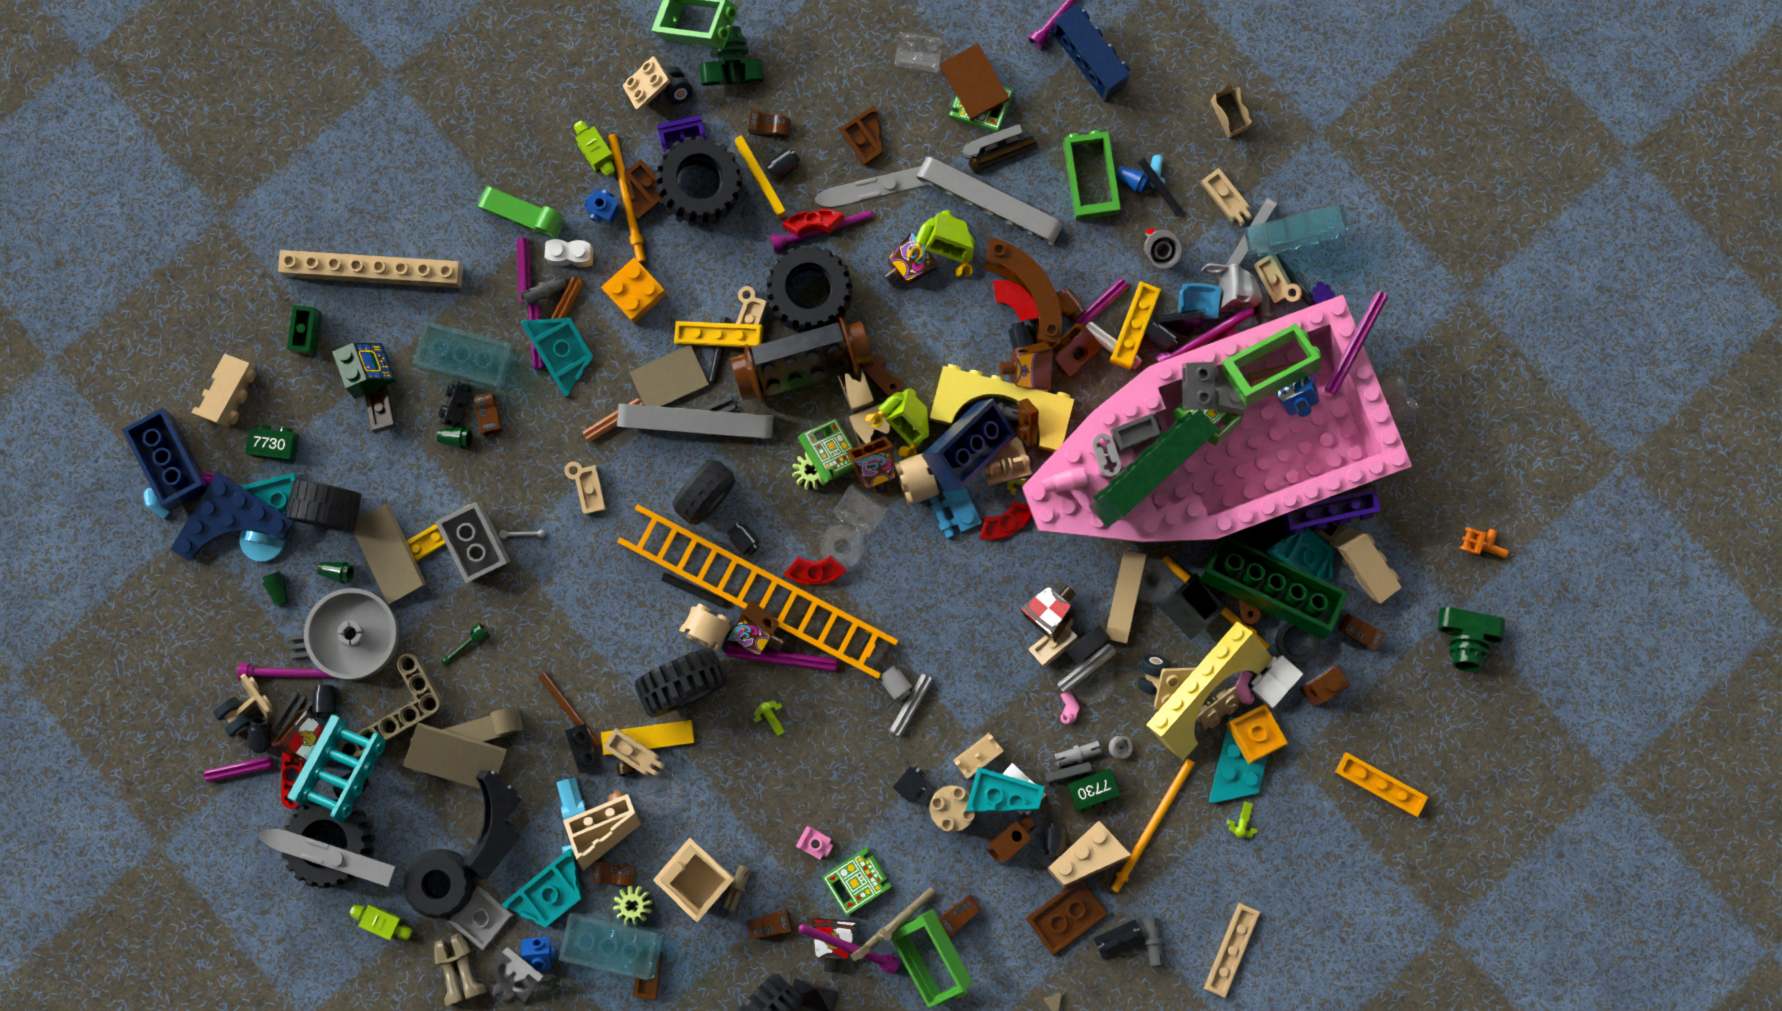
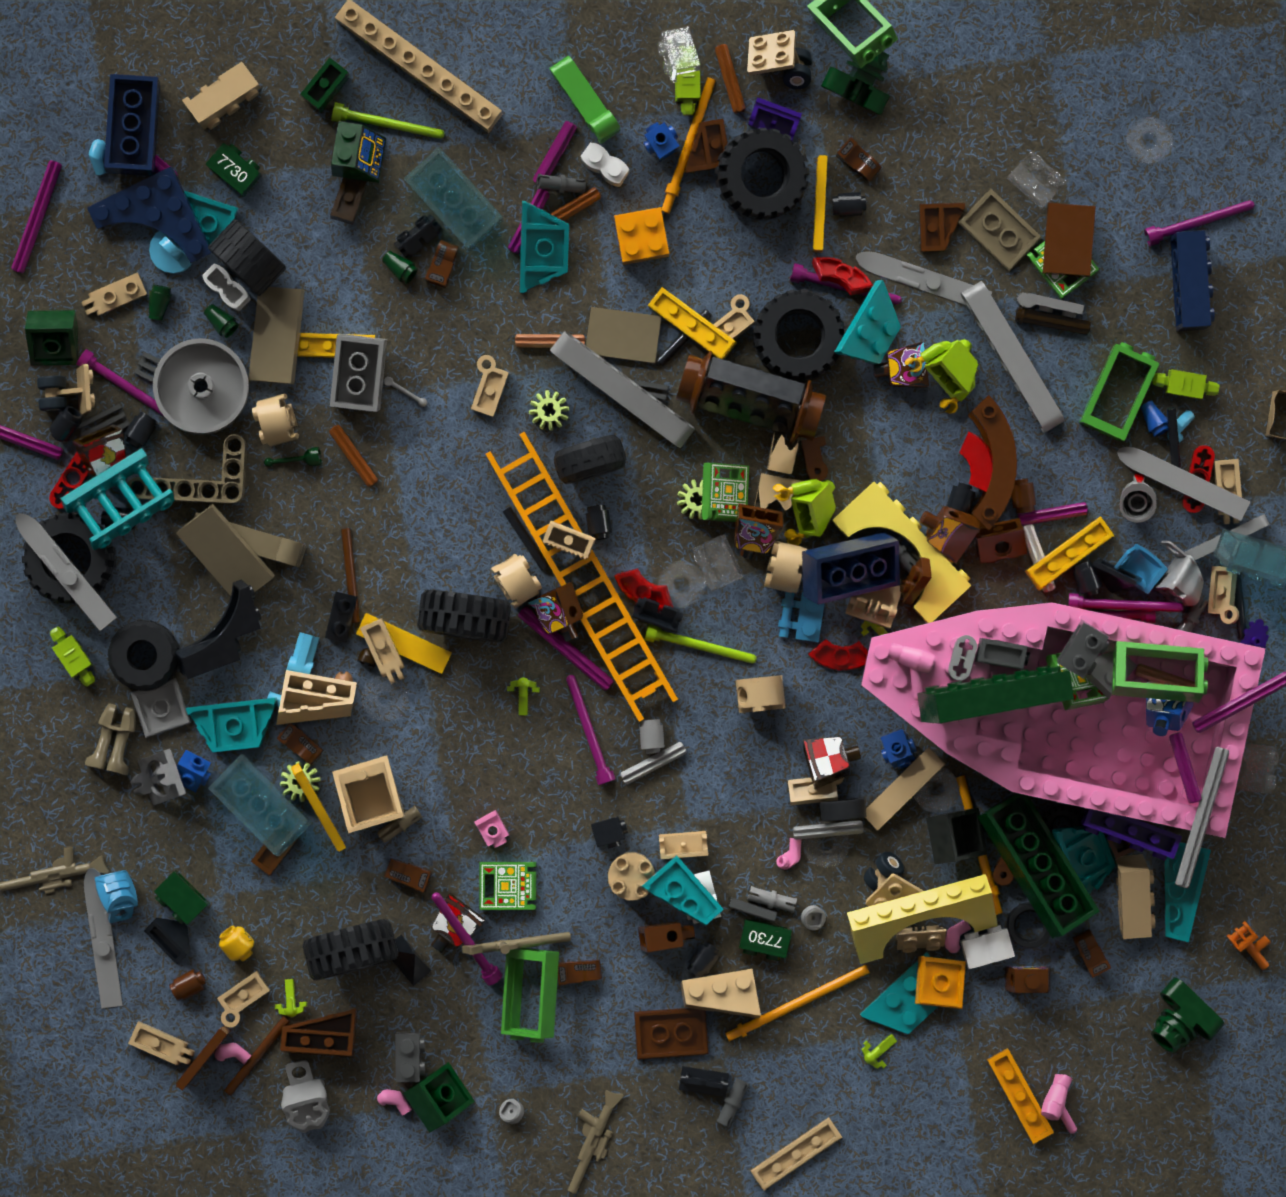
camera: 30 degrees right, 5 degrees up
(134, 583) = (36, 216): none -> magenta axle
(205, 672) = (52, 337): none -> dark green slope
(237, 605) = (115, 295): none -> tan hinge
(327, 541) = (222, 283): none -> white brick
(332, 344) = (342, 113): none -> lime piece
(429, 623) = (275, 420): none -> tan brick
(511, 611) = (353, 455): none -> dark orange axle
(571, 129) = (678, 52): none -> clear bracket
(626, 125) = (730, 78): none -> dark orange axle
(641, 481) = (556, 407): none -> yellowish green gear
(660, 917) = (318, 807): none -> yellow tile
(727, 567) = (568, 540): none -> tan brick
(845, 598) = (655, 633): none -> lime piece
(848, 581) = (667, 619): none -> black hinge
(863, 246) = (871, 328): none -> teal wing
(876, 739) = (603, 774): none -> magenta piece
(915, 110) = (999, 230): none -> dark tan tile
(961, 593) = (760, 694): none -> tan brick
(1096, 561) = (898, 741): none -> blue brick
(1139, 135) = (1185, 384): none -> lime piece
(1188, 212) = (1184, 482): none -> light grey piece
(1202, 196) = (1207, 474): none -> red beam
(1343, 429) = (1185, 767): none -> magenta axle
(1383, 460) = (1202, 817): none -> light grey axle
(1400, 534) = (1180, 901): none -> teal wing
(1412, 770) = (1055, 1100): none -> bright pink piece

